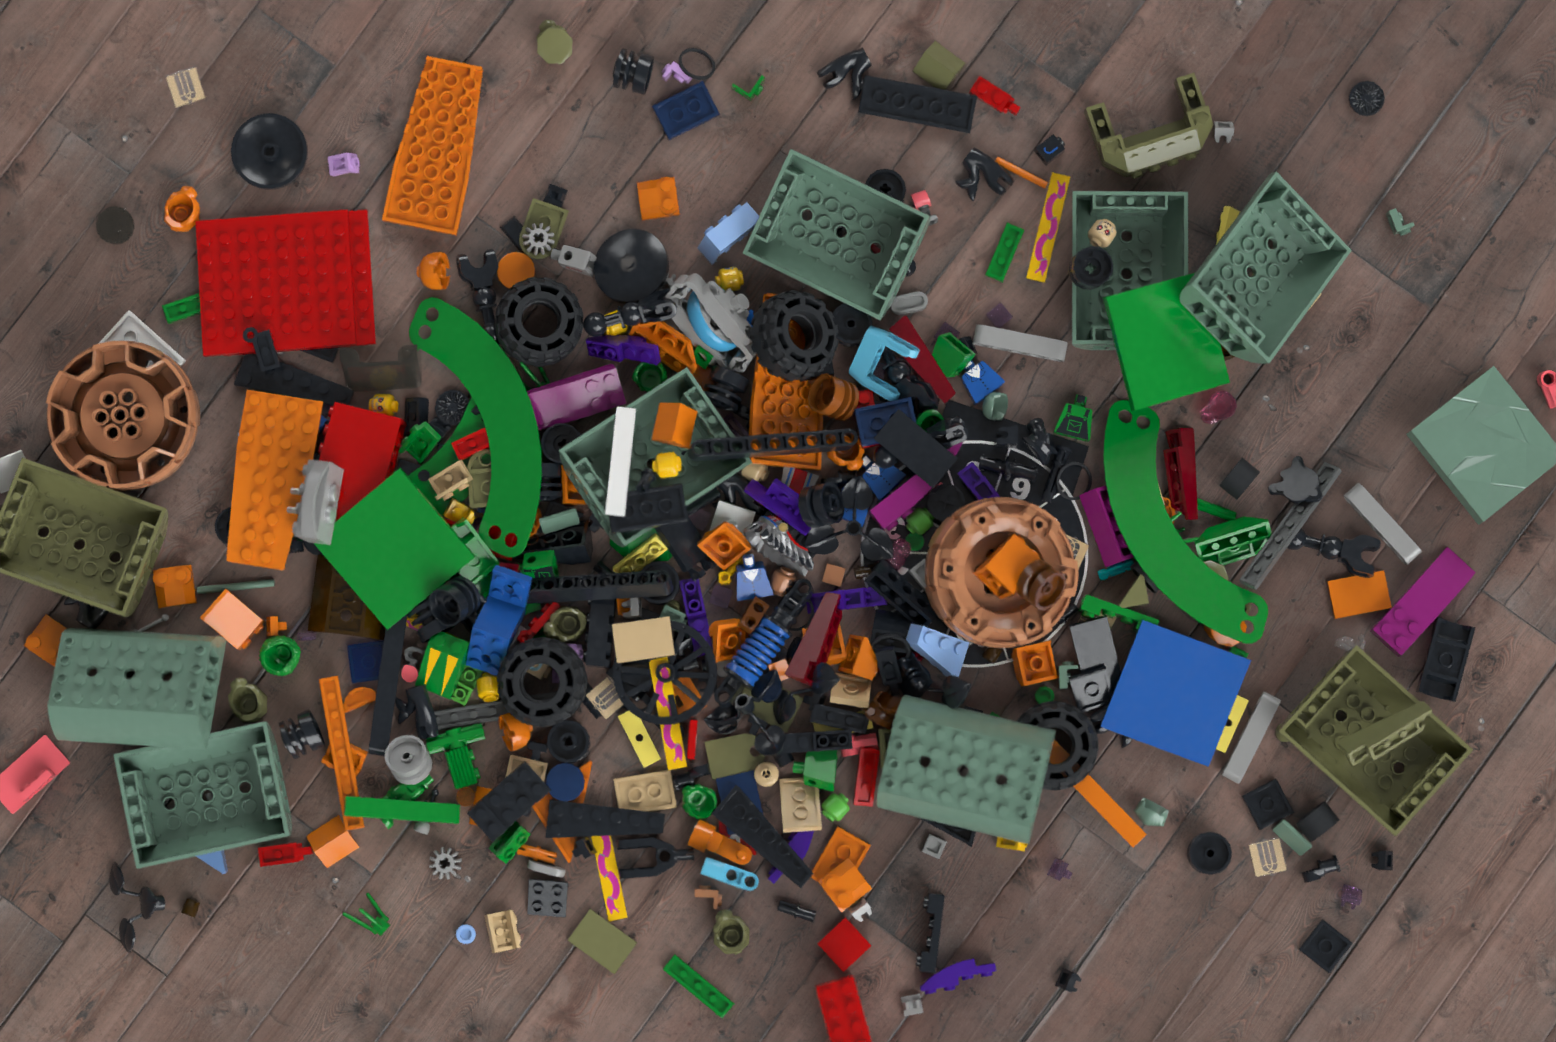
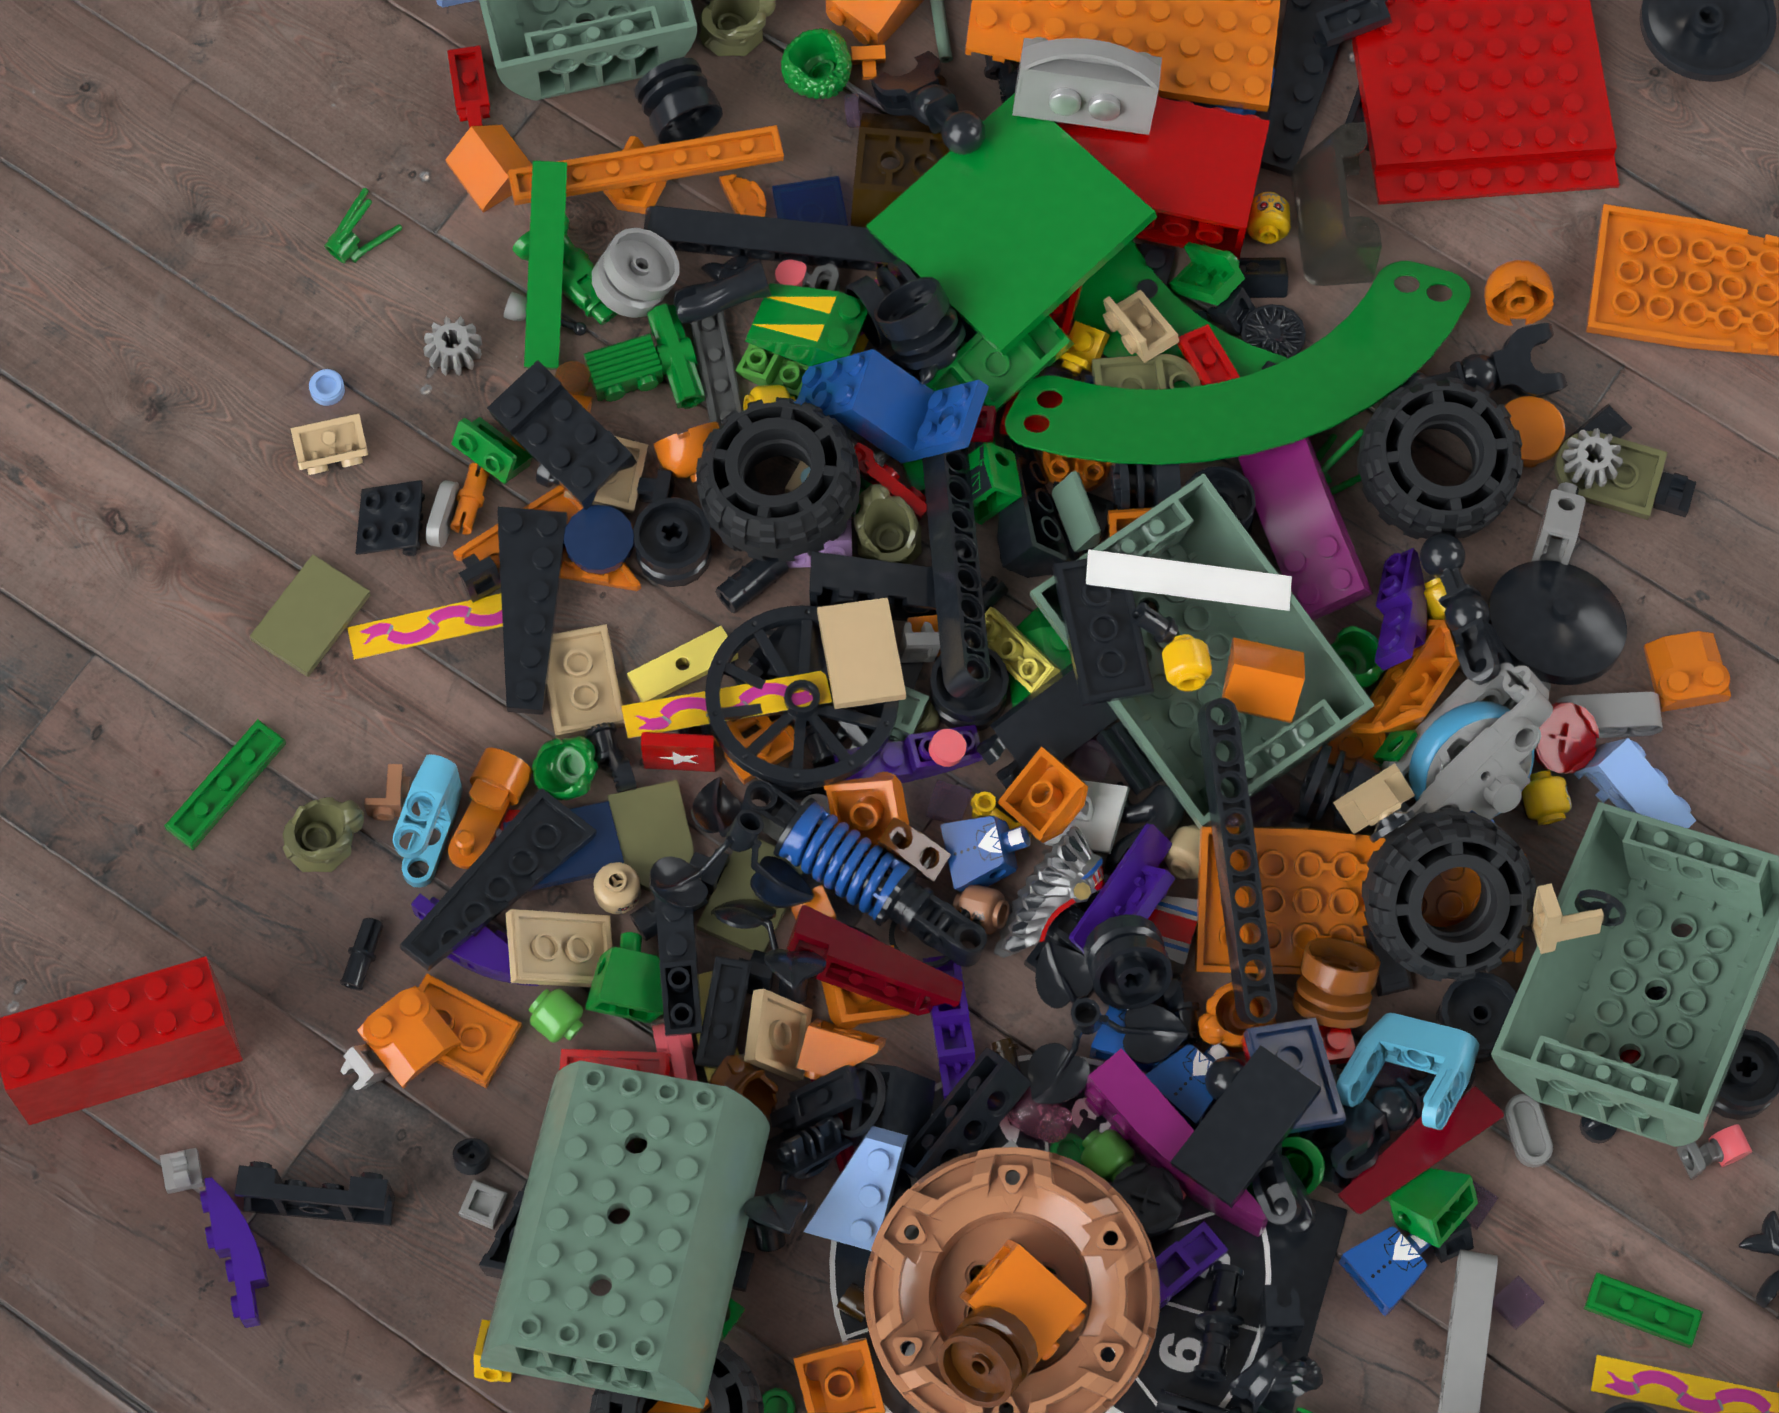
camera: 85 degrees right, 15 degrees down
(313, 589) = (929, 100): none -> black piece
(343, 164) = (1698, 142): lavender bracket -> none
(605, 698) = (751, 596): clear piece -> none
(675, 855) = (447, 708): black piece -> none
(683, 242) = (1622, 713): none -> light grey beam
(696, 595) = (947, 747): none -> coral tile
(700, 263) = (1567, 739): none -> tile
(744, 370) = (1377, 803): none -> tan piece
(817, 284) = (1552, 927): none -> tan piece
(833, 575) = (997, 1004): nougat tile -> none
(844, 944) = (298, 1042): red tile -> none
(909, 852) = (471, 1156): none -> black tile
(995, 406) = (1340, 1295): sand green hair -> none

